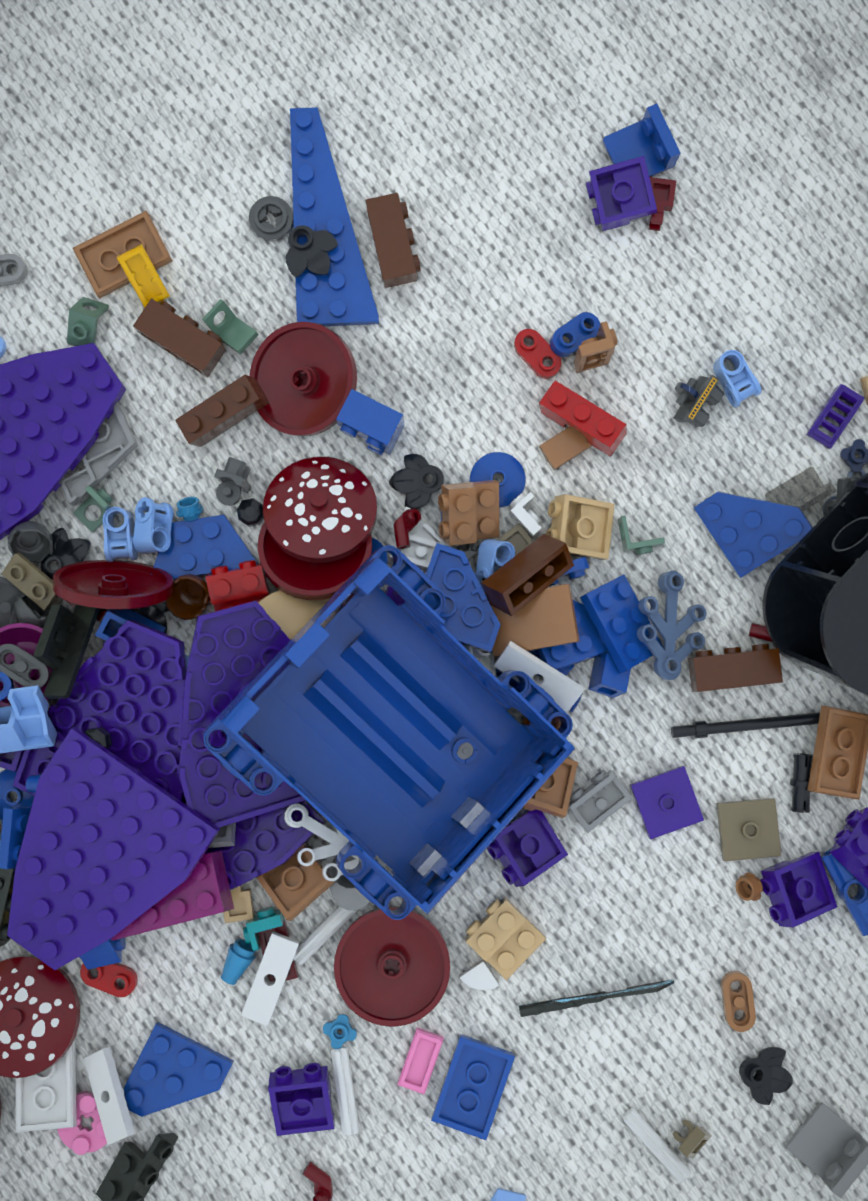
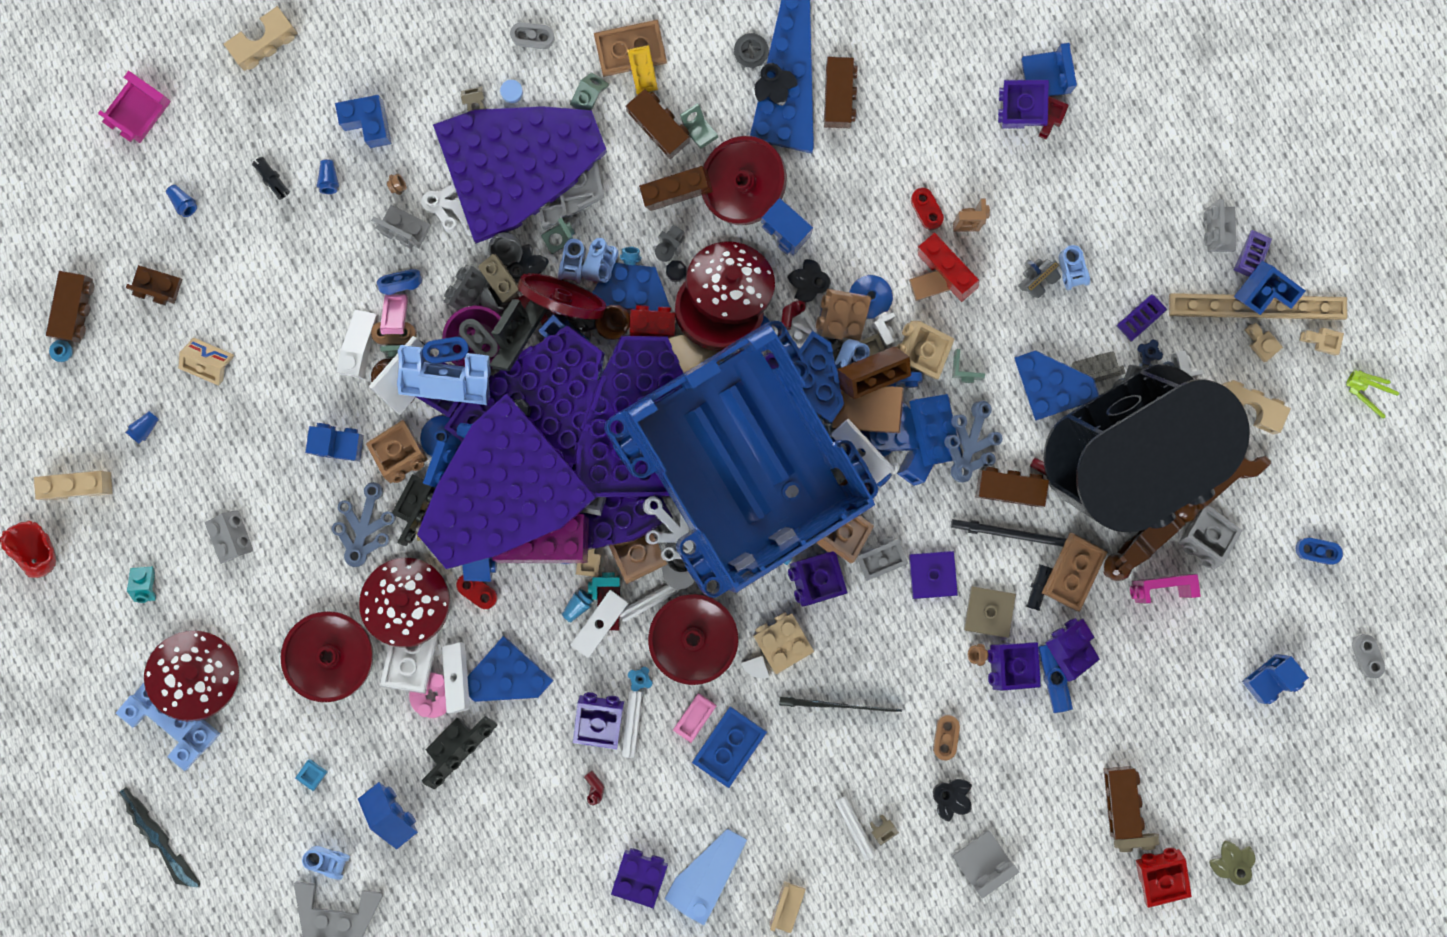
camera: 10 degrees right, 0 degrees up
(575, 332) = (960, 200): blue plate -> none

